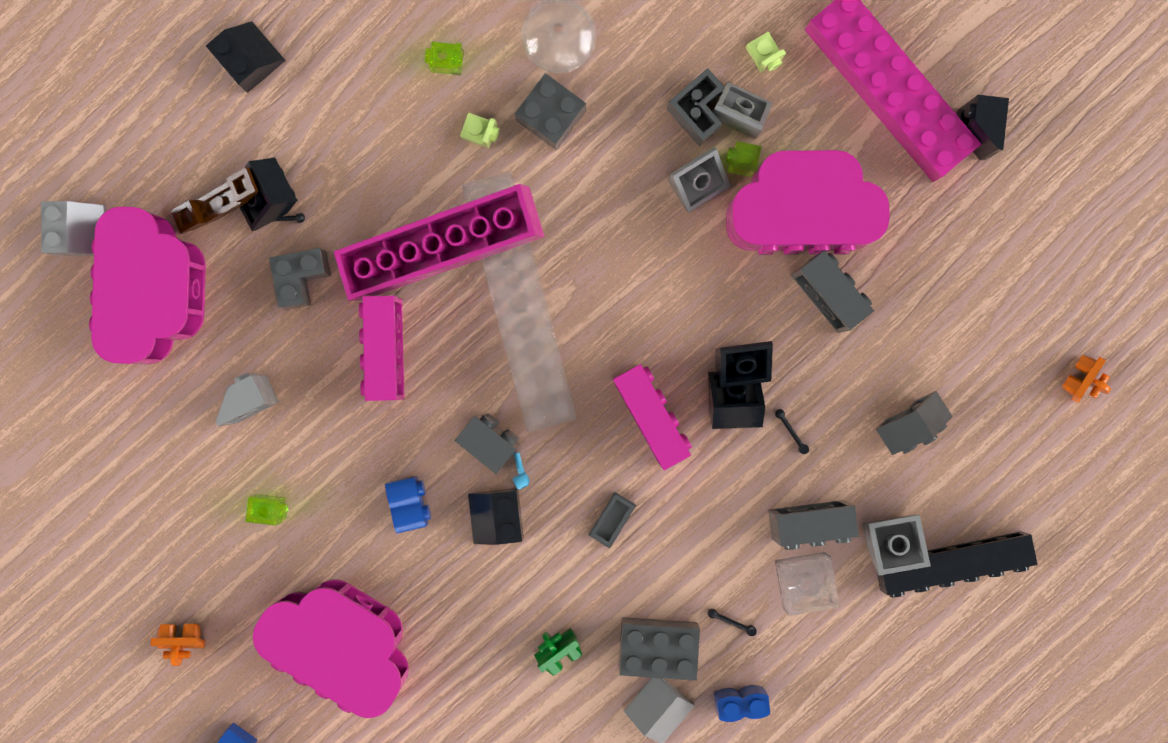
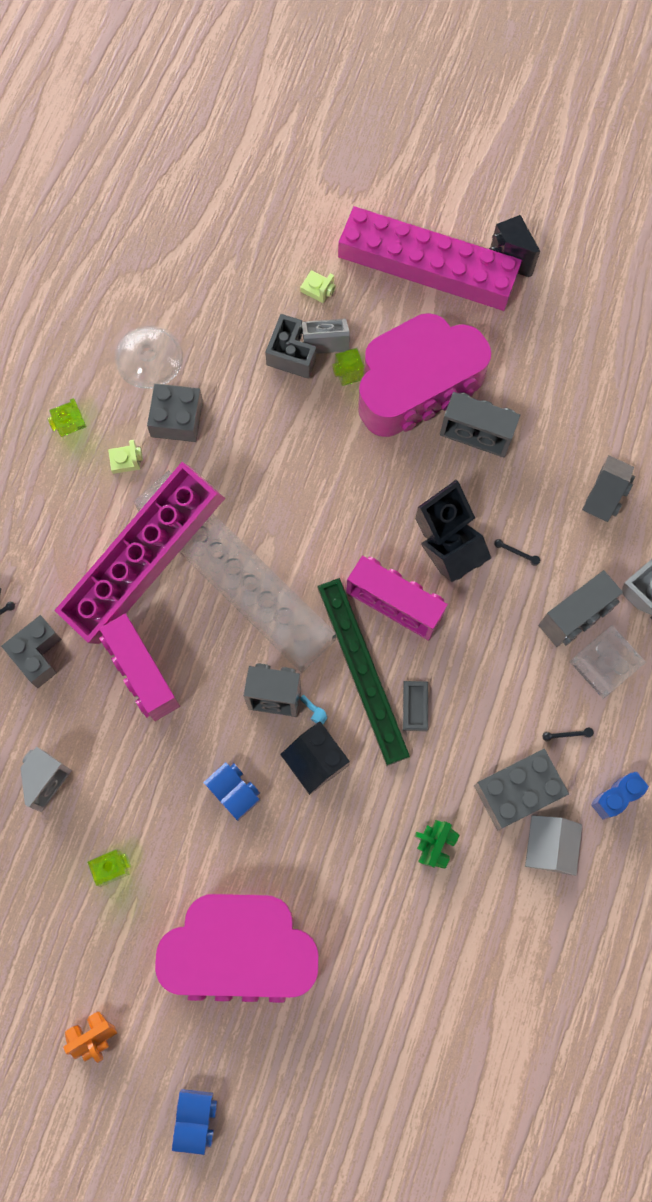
camera: 30 degrees left, 15 degrees down
(584, 461) = (363, 672): none -> dark green tile
(699, 180) = (323, 400): light grey slope -> none

